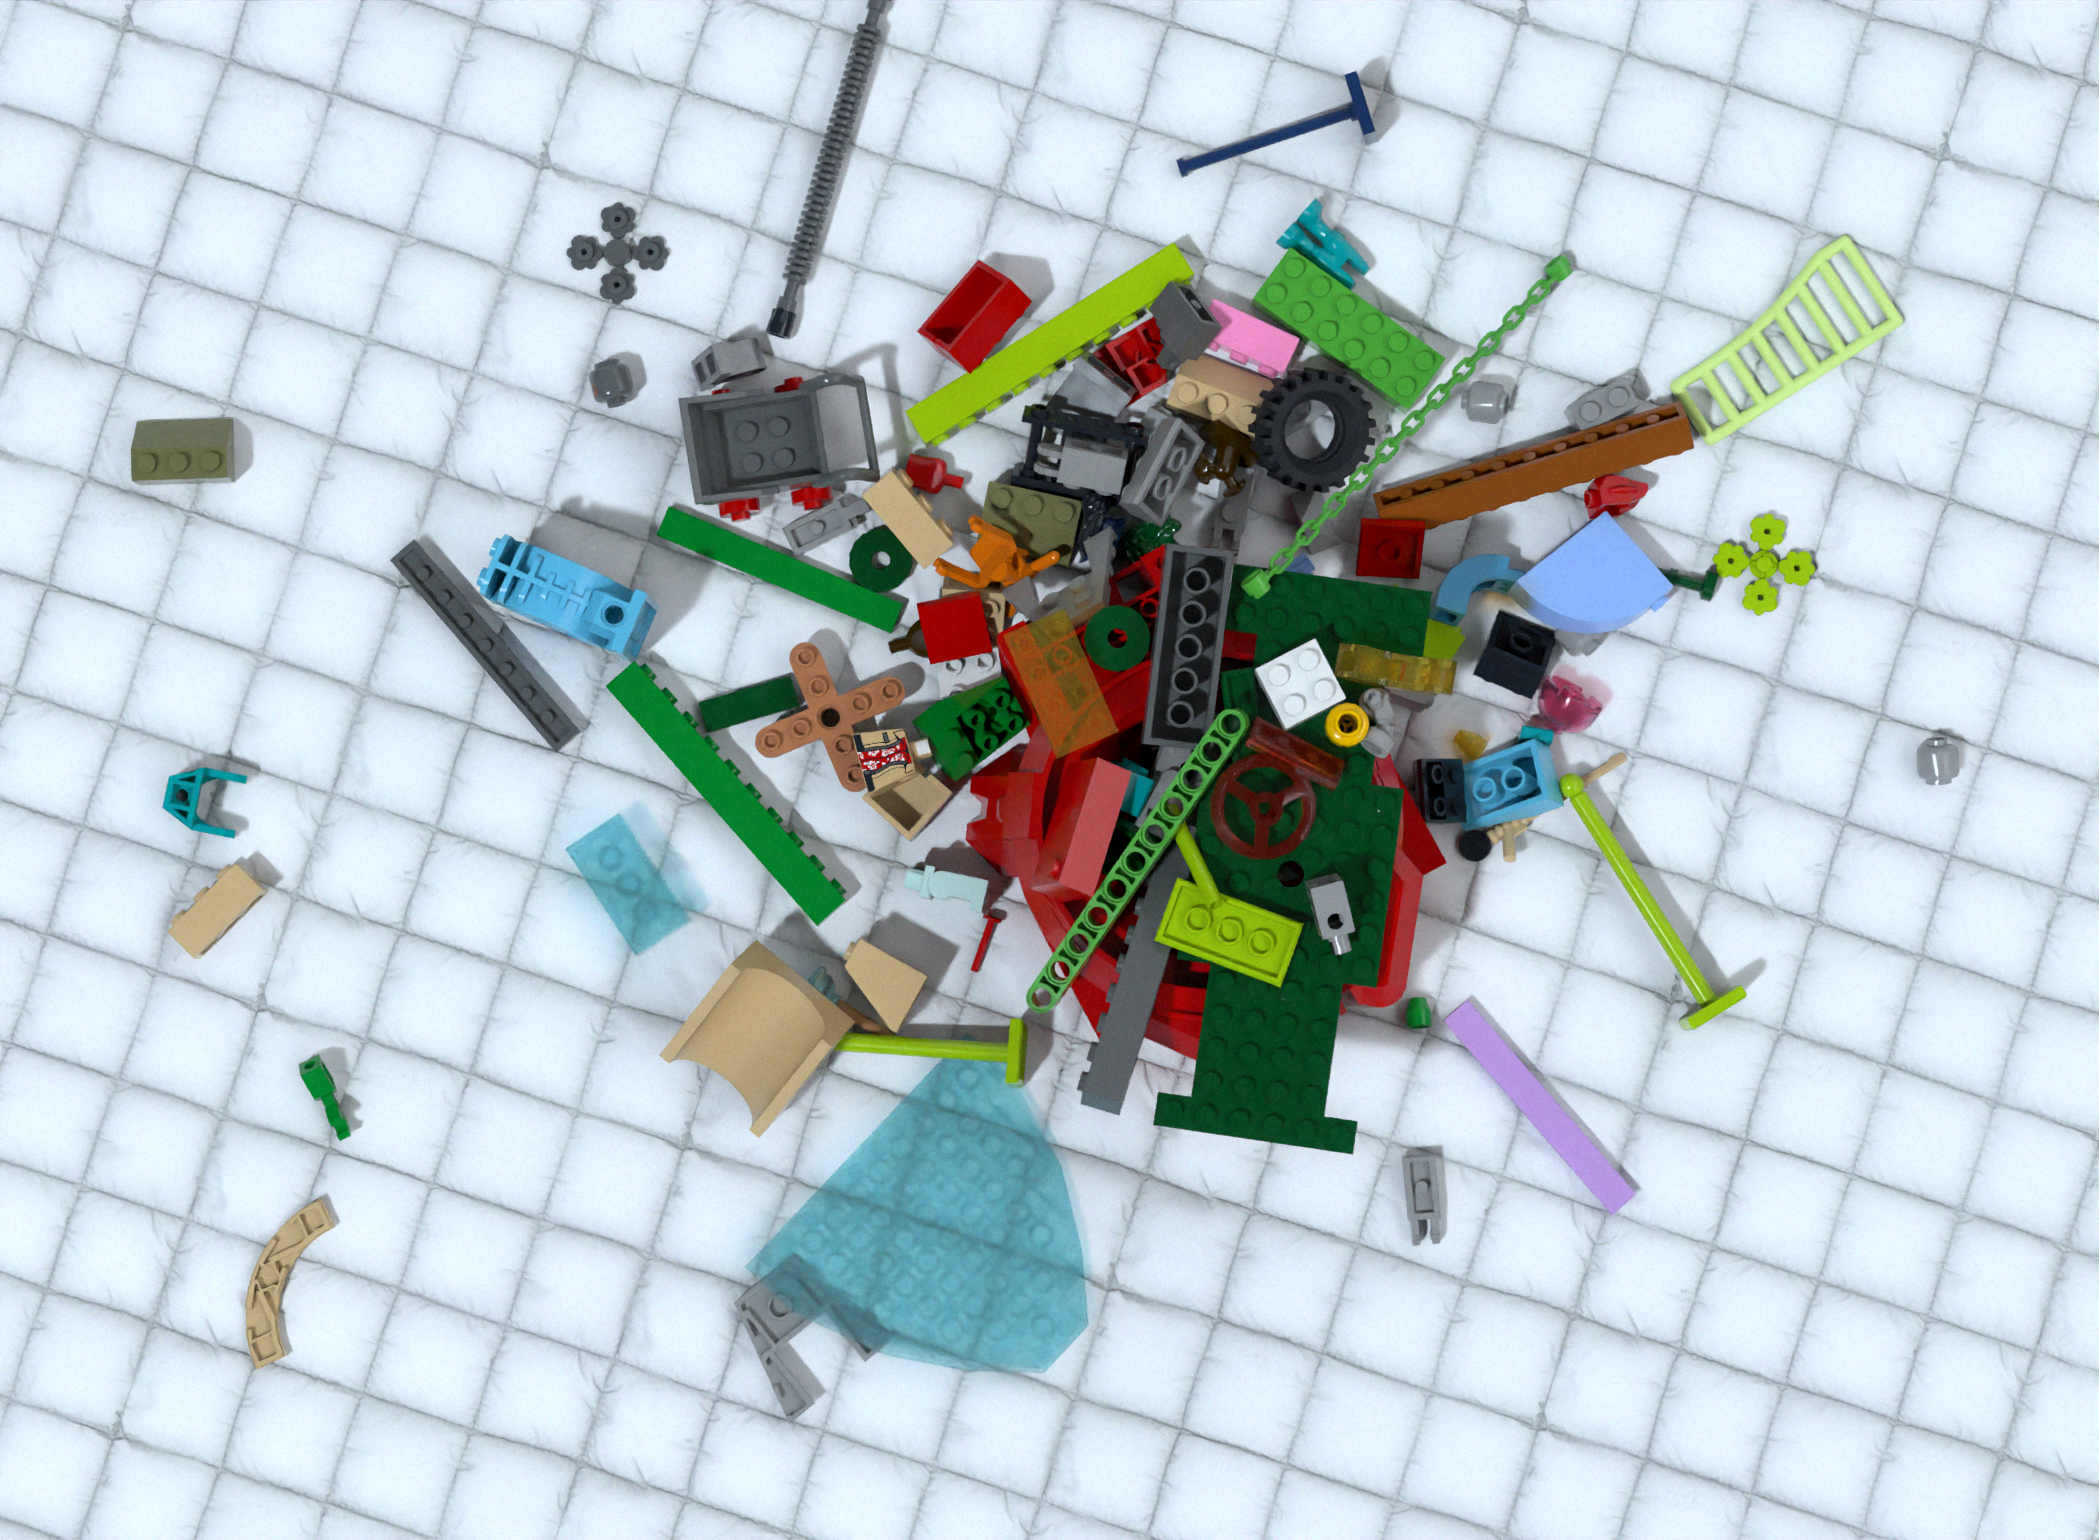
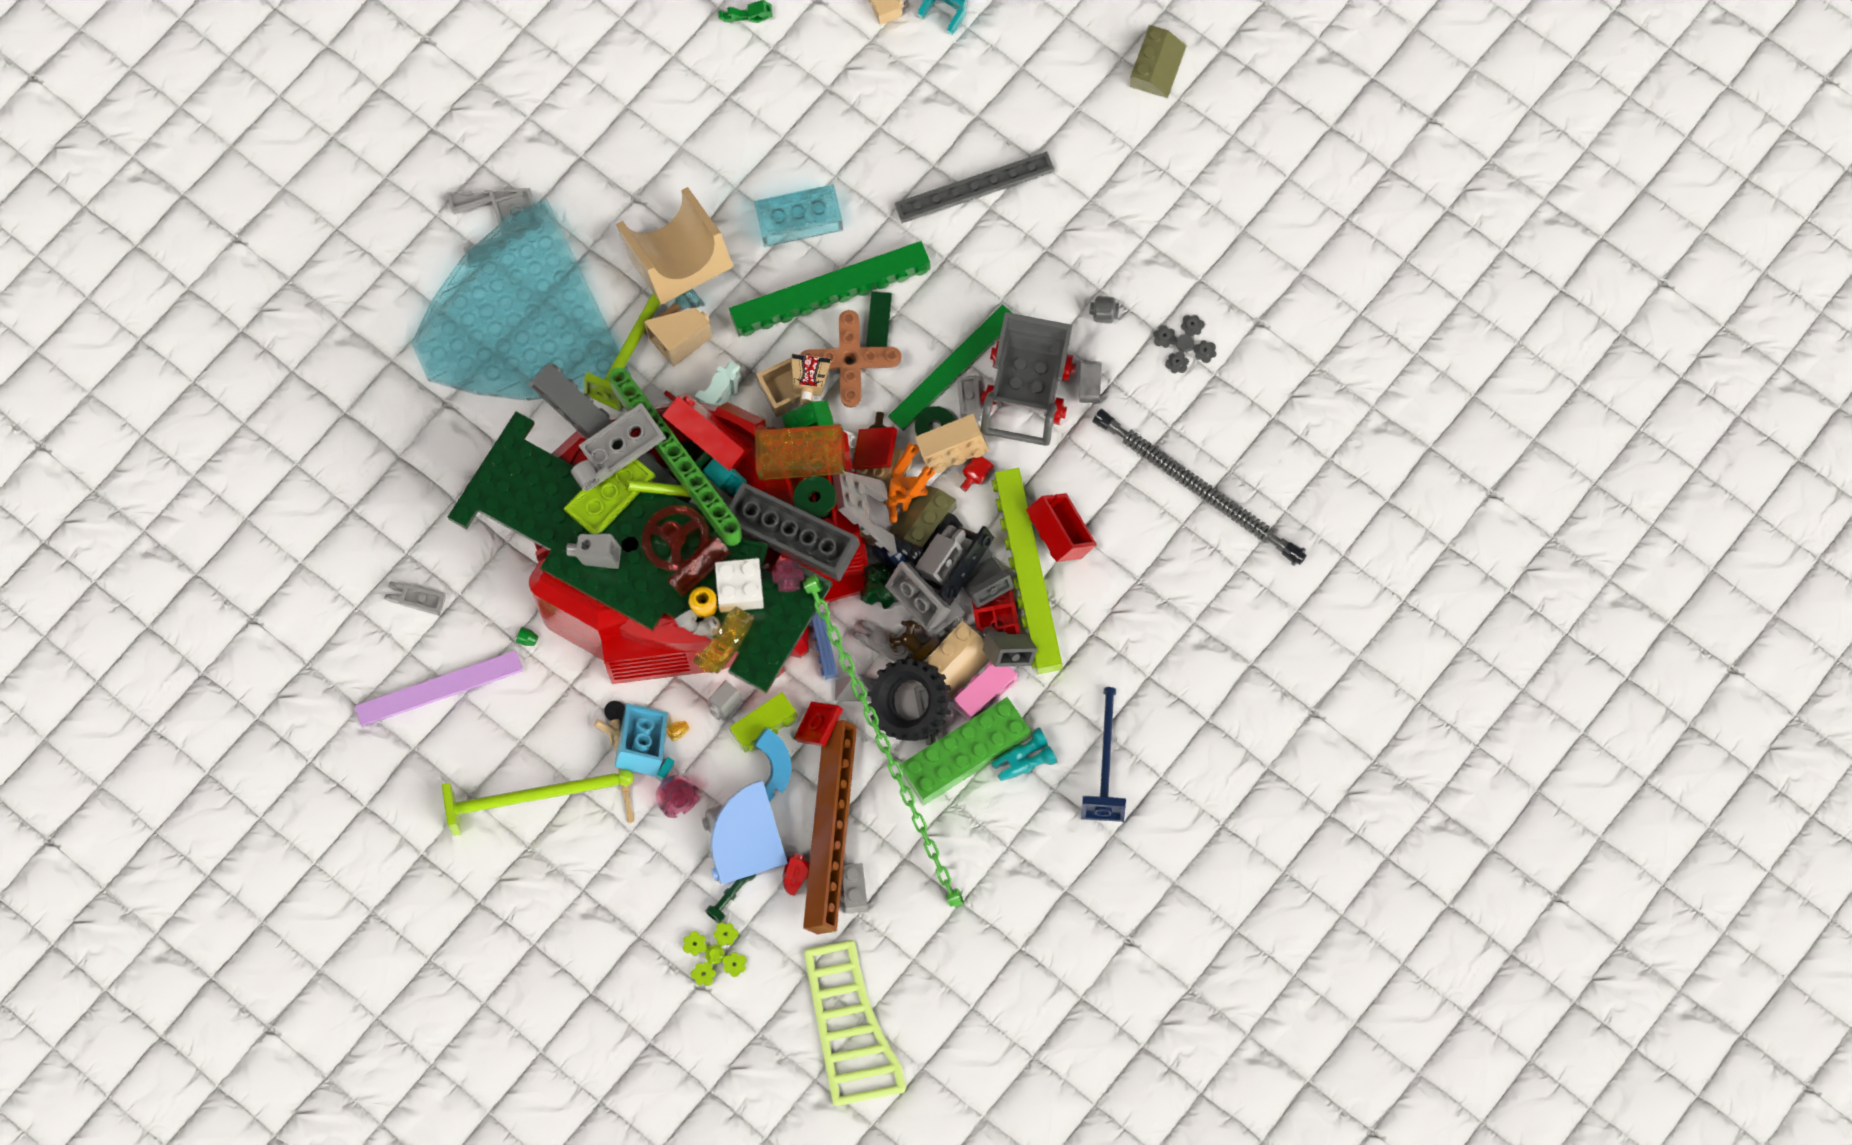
camera: 115 degrees right, 15 degrees down
(567, 597) = (979, 230): medium azure brick -> none
(1188, 953) = (605, 460): none -> light grey hinge
(1258, 634) = (789, 582): none -> clear pink brick
(1440, 790) = (655, 693): black slope -> none
(1485, 402) = (887, 819): light grey head -> none
(1515, 655) = (720, 775): black slope -> none
(1938, 761) = (543, 1013): light grey head -> none

